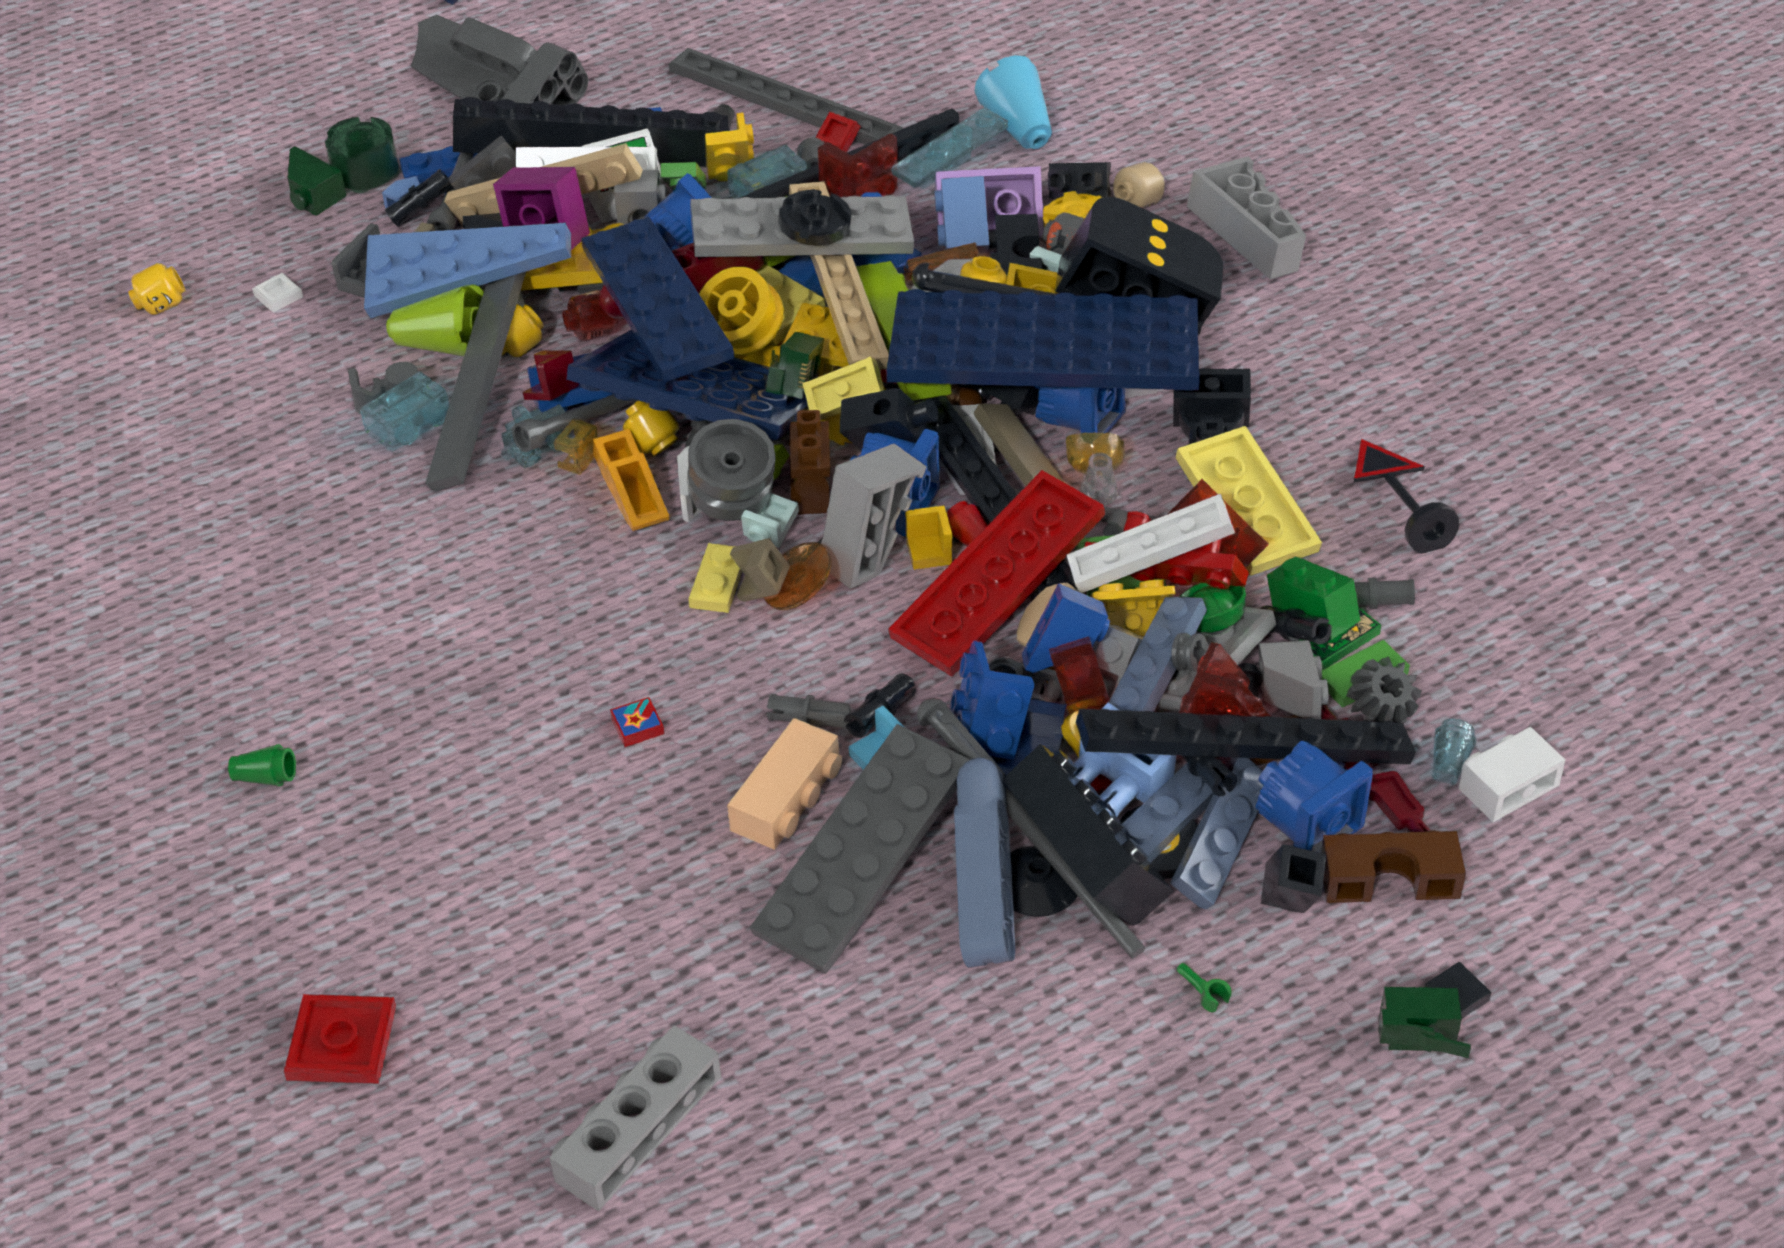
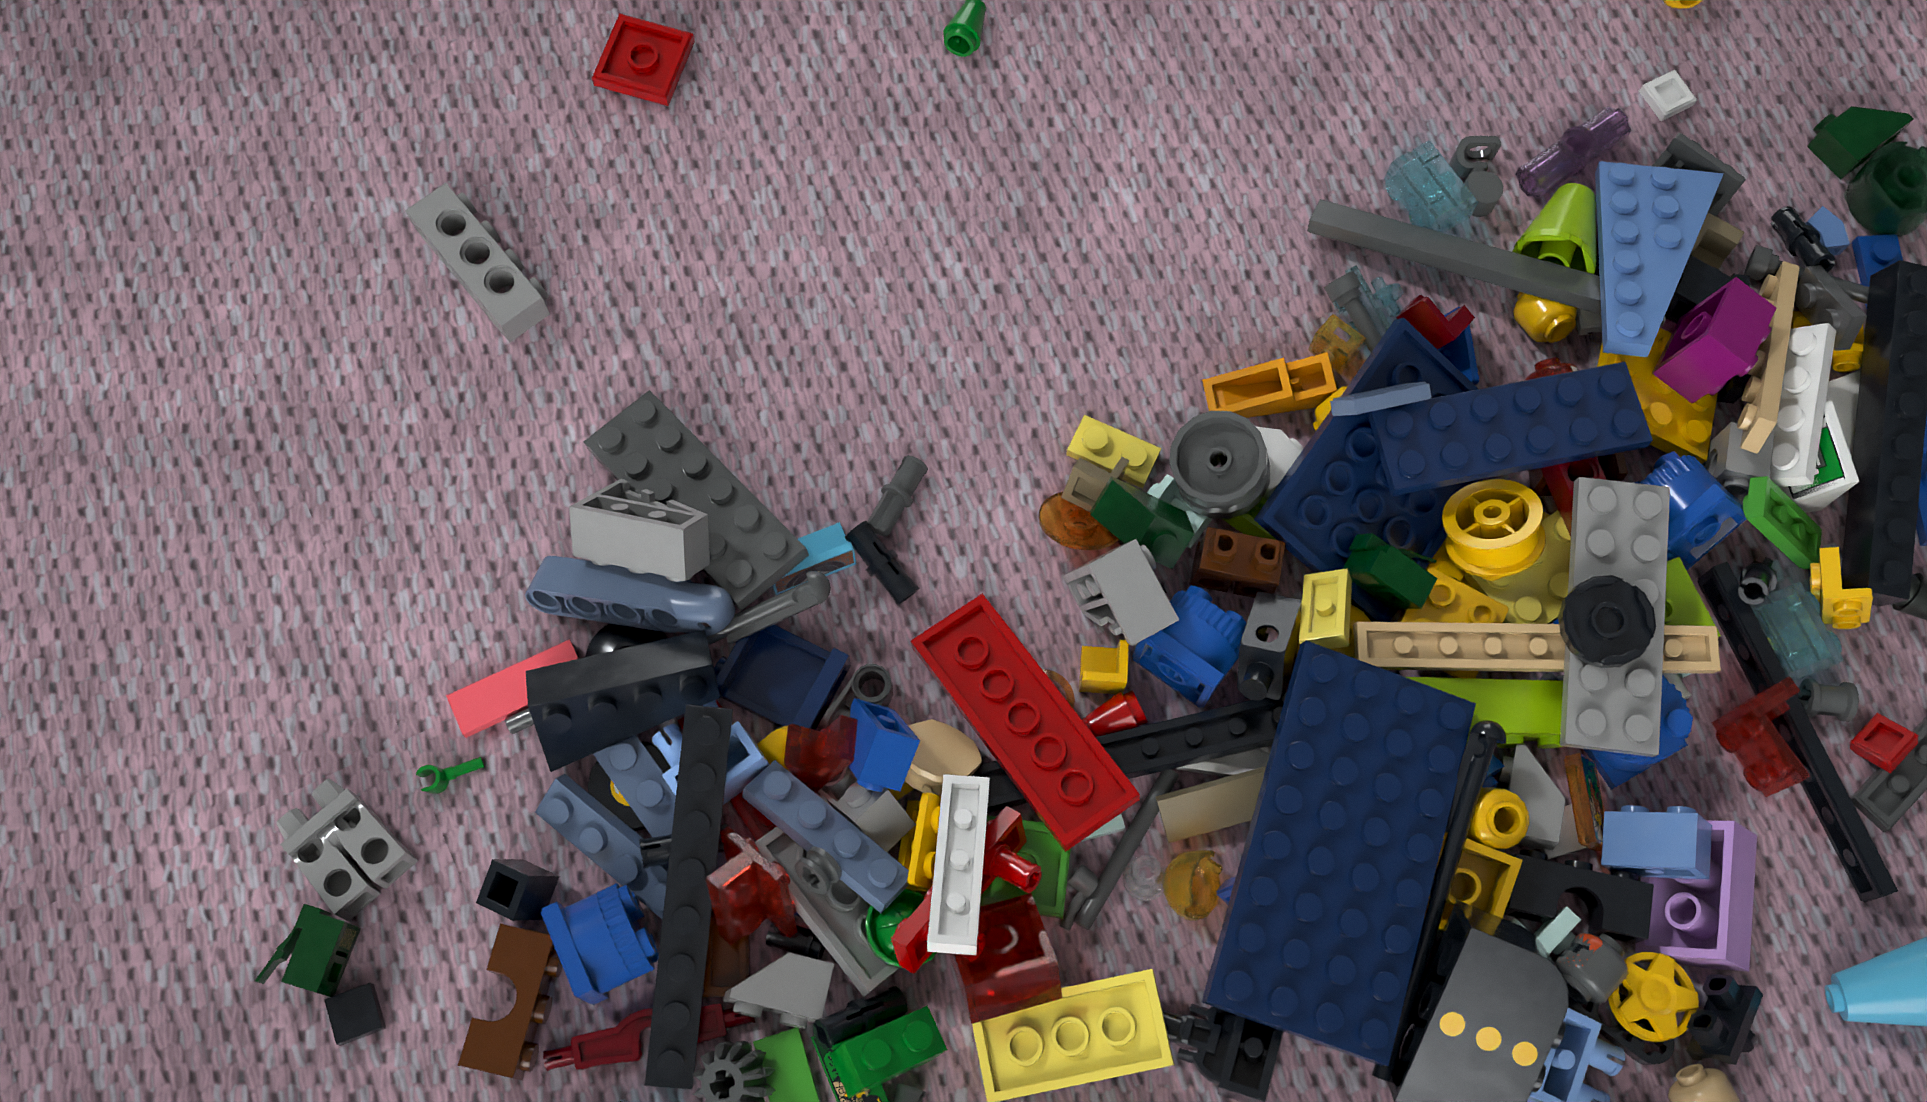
camera: 100 degrees right, 25 degrees up
(351, 332) = (1558, 161): none -> clear purple piece
(637, 721) = (935, 342): tile -> none
(653, 363) = (1380, 398): none -> sand blue tile
(737, 186) = (1757, 581): none -> black axle
(784, 784) = (804, 452): light nougat brick -> none
(797, 513) = (1142, 517): none -> dark green slope
(923, 848) = (640, 532): none -> light grey wedge
(949, 149) = (1806, 865): clear light blue bracket -> none
(991, 703) = (800, 651): blue bracket -> none
(1099, 955) = (503, 692): none -> coral tile
(1313, 1038) = (330, 837): none -> light grey hips

